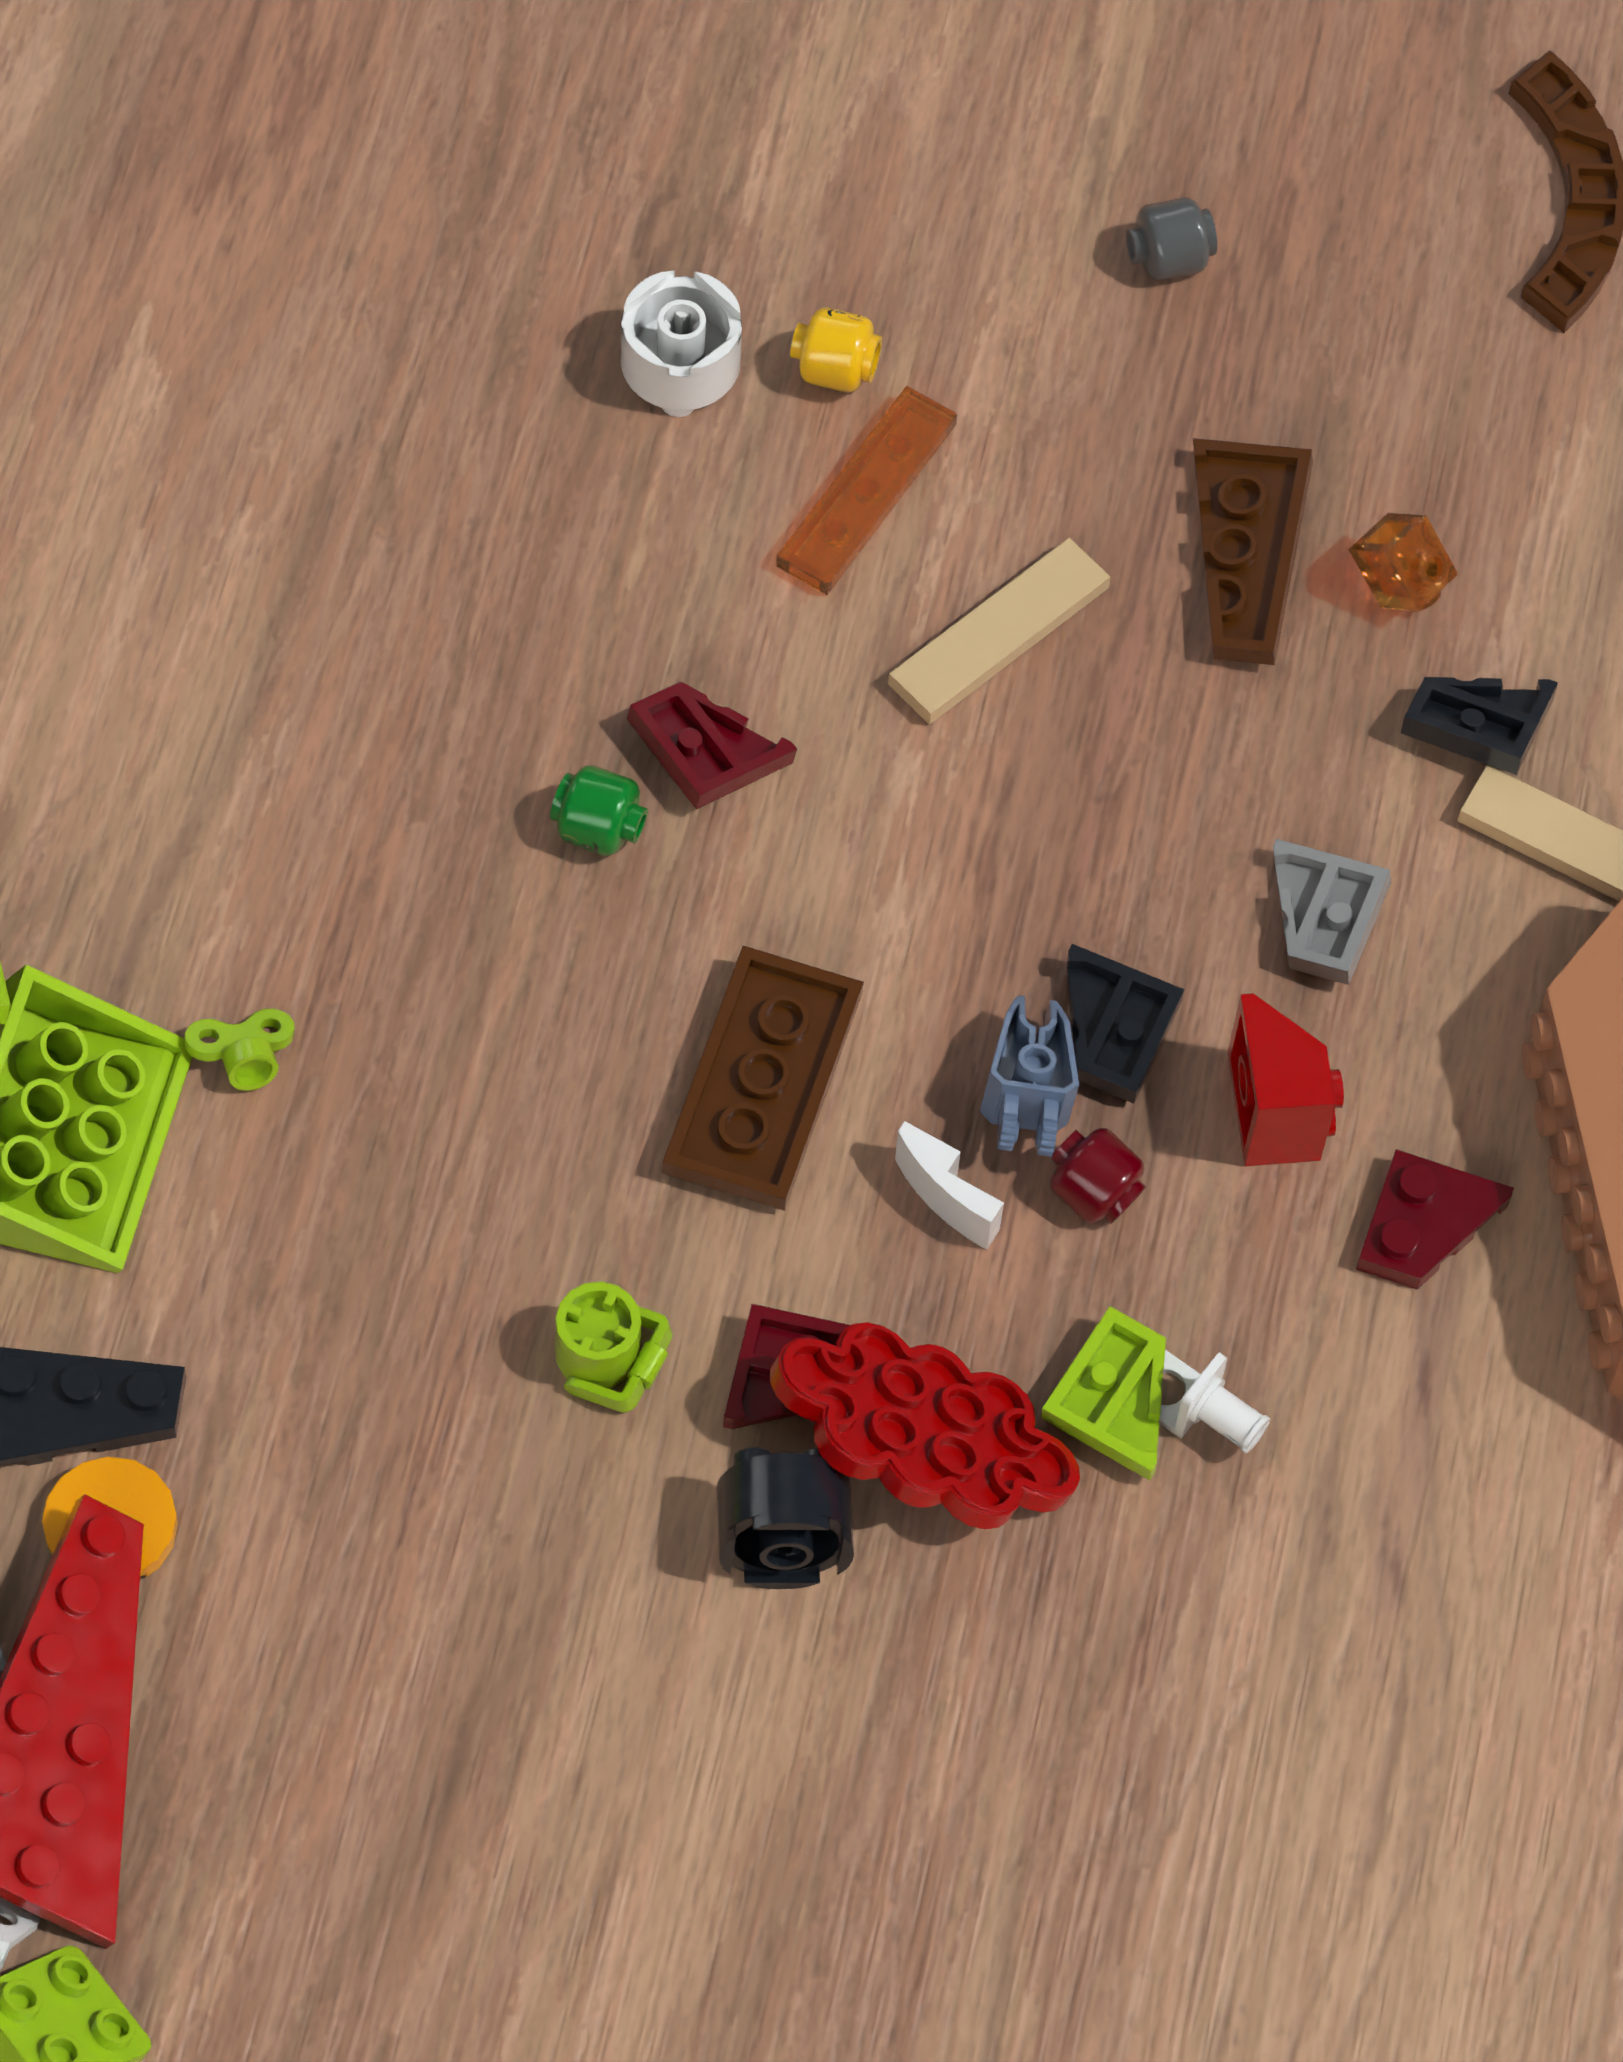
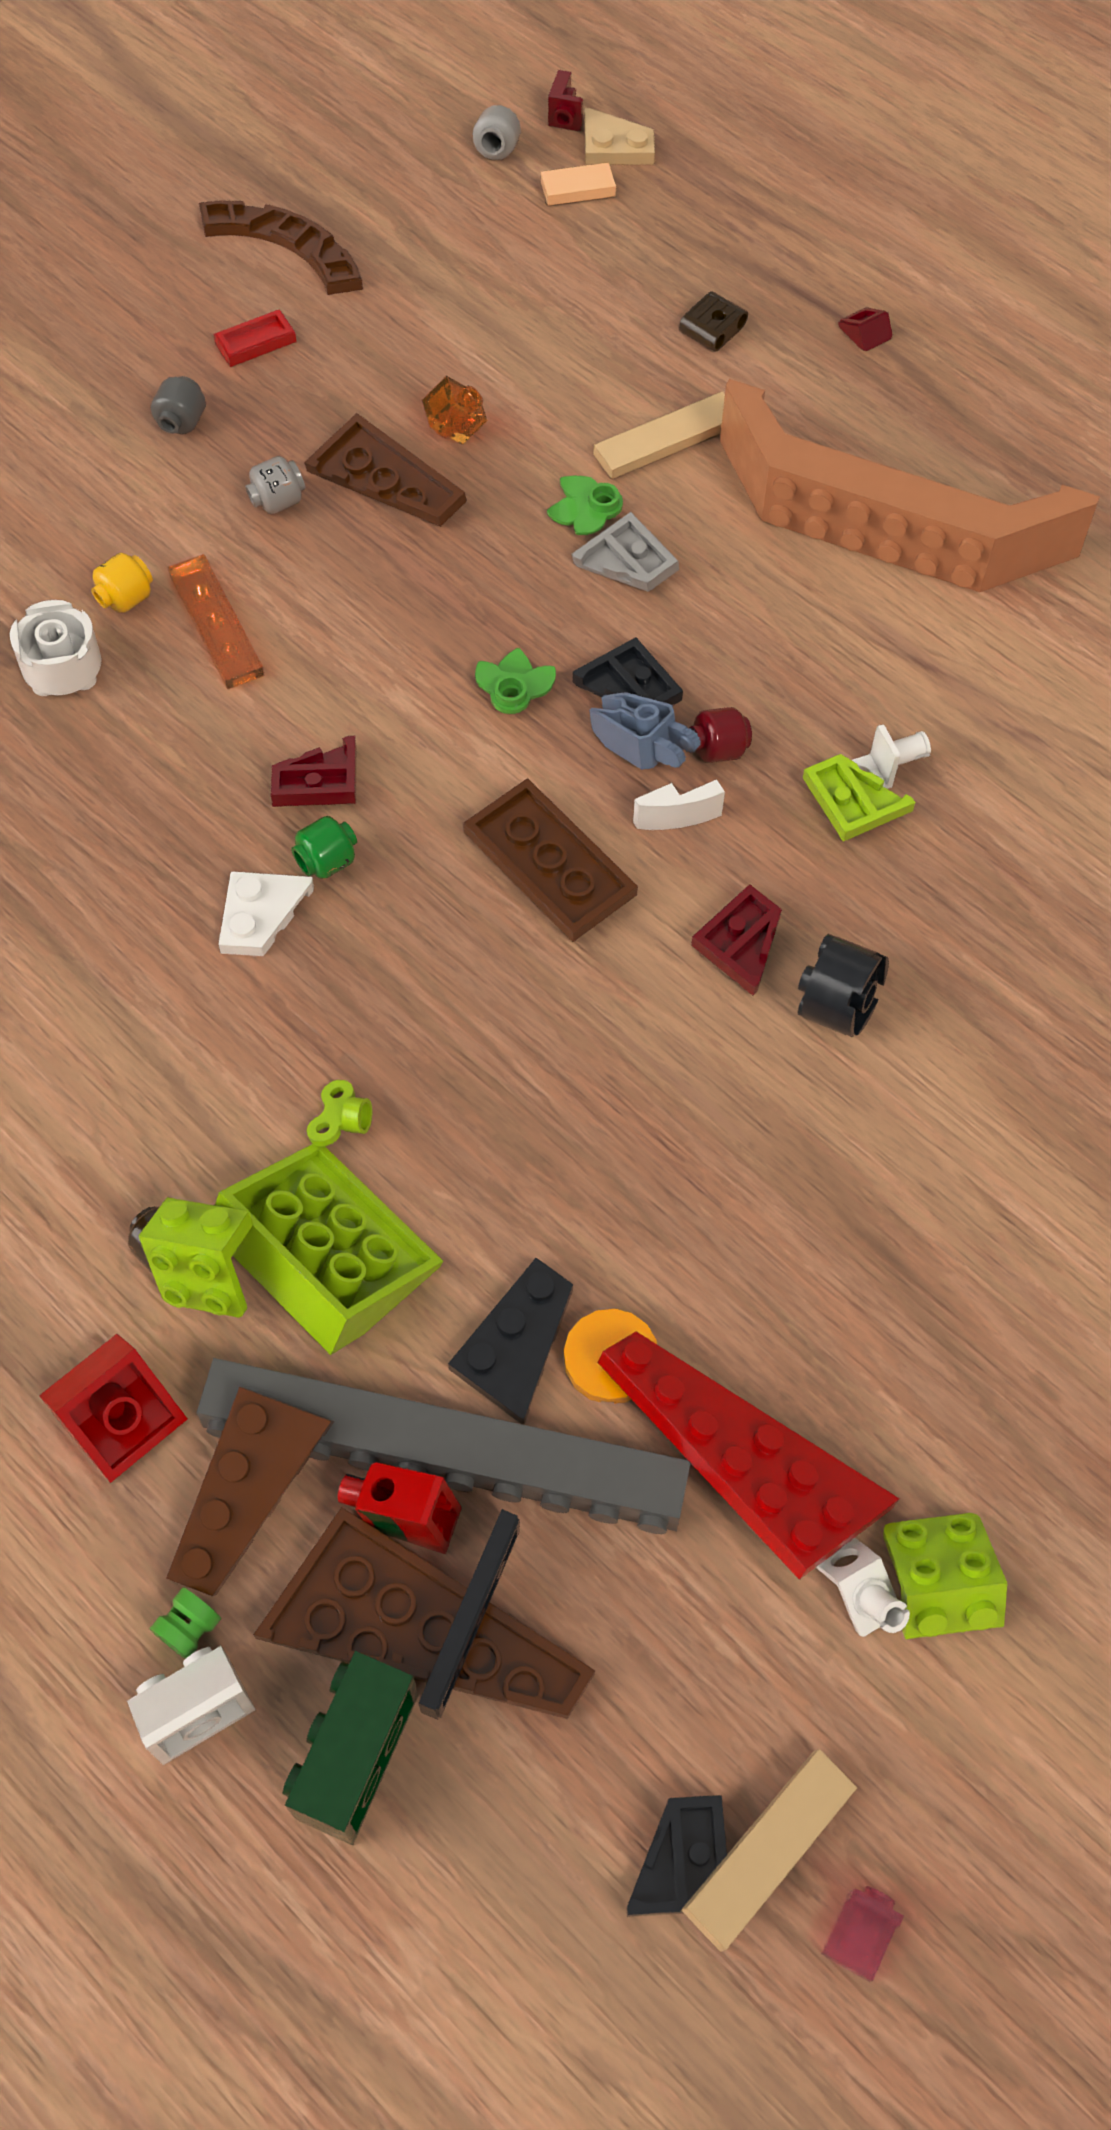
camera: 55 degrees left, 0 degrees up
(469, 793) = (259, 909): none -> white wing
(601, 1345) = (665, 1024): lime piece -> none
(924, 1425) = (828, 888): red plate -> none
(999, 631) = (351, 609): tan tile -> none
(1025, 882) = (514, 678): none -> bright green plate
(1121, 427) = (275, 485): none -> light grey head
(1280, 1086) = (727, 620): red slope -> none
(1369, 257) = (255, 338): none -> red tile
(1373, 808) = (586, 504): none -> bright green plate
(1425, 1218) = (834, 612): dark red wing -> none
(1479, 718) = (566, 433): black wing -> none

